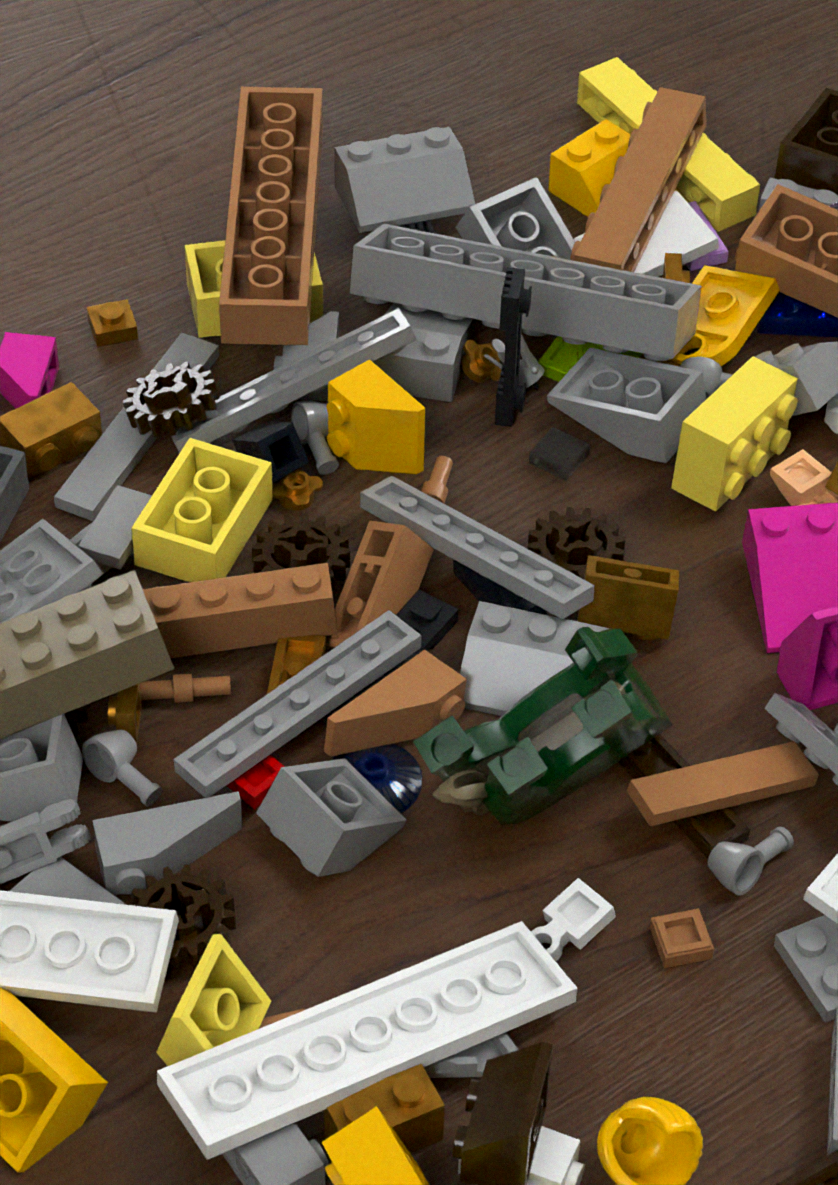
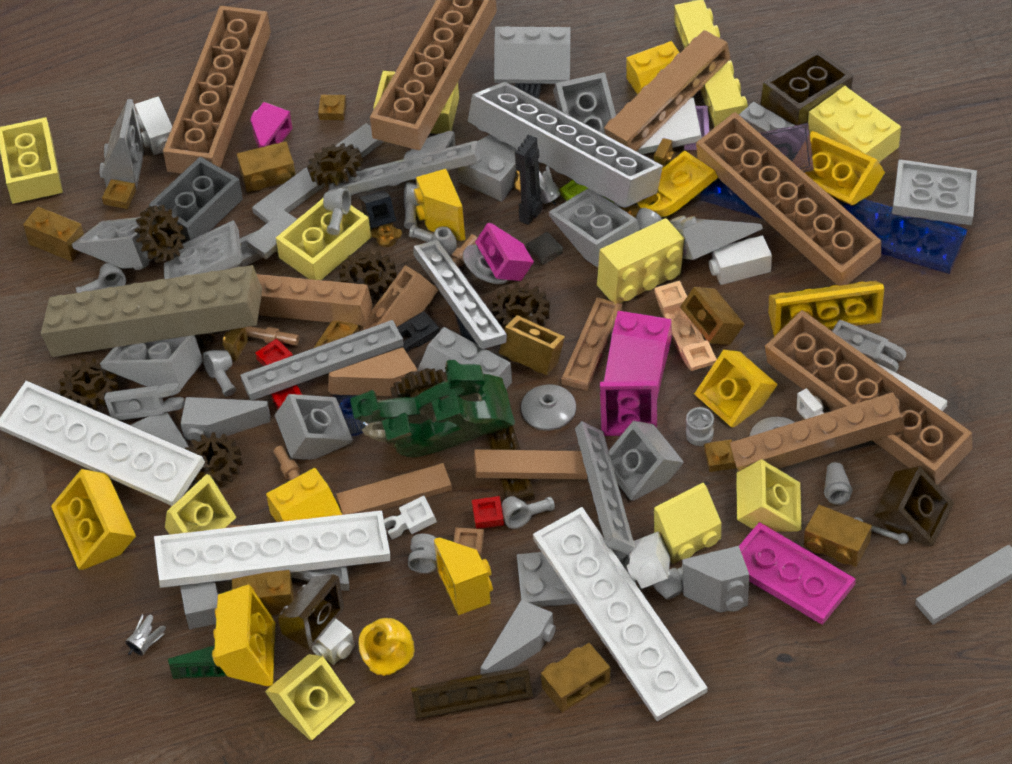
camera: 25 degrees right, 5 degrees up
(202, 716) = (272, 353): none -> red plate
(215, 449) = (339, 203): none -> light grey bar
(321, 896) = (288, 466): none -> medium nougat bar
(376, 939) = (302, 498): none -> yellow slope
(391, 465) = (441, 234): none -> light grey bar
(486, 497) = (477, 264): none -> light grey dish
(491, 695) = (417, 382): none -> dark brown gear
(508, 471) = (504, 253): none -> dark pink slope
(515, 887) = (395, 491): none -> medium nougat tile
(624, 979) = (423, 554): none -> light grey wheel
(691, 879) = (487, 512): none -> red plate
(694, 689) = (548, 415): none -> light grey dish
(710, 578) = (591, 344): none -> medium nougat tile
(716, 989) = (463, 575): none -> yellow slope

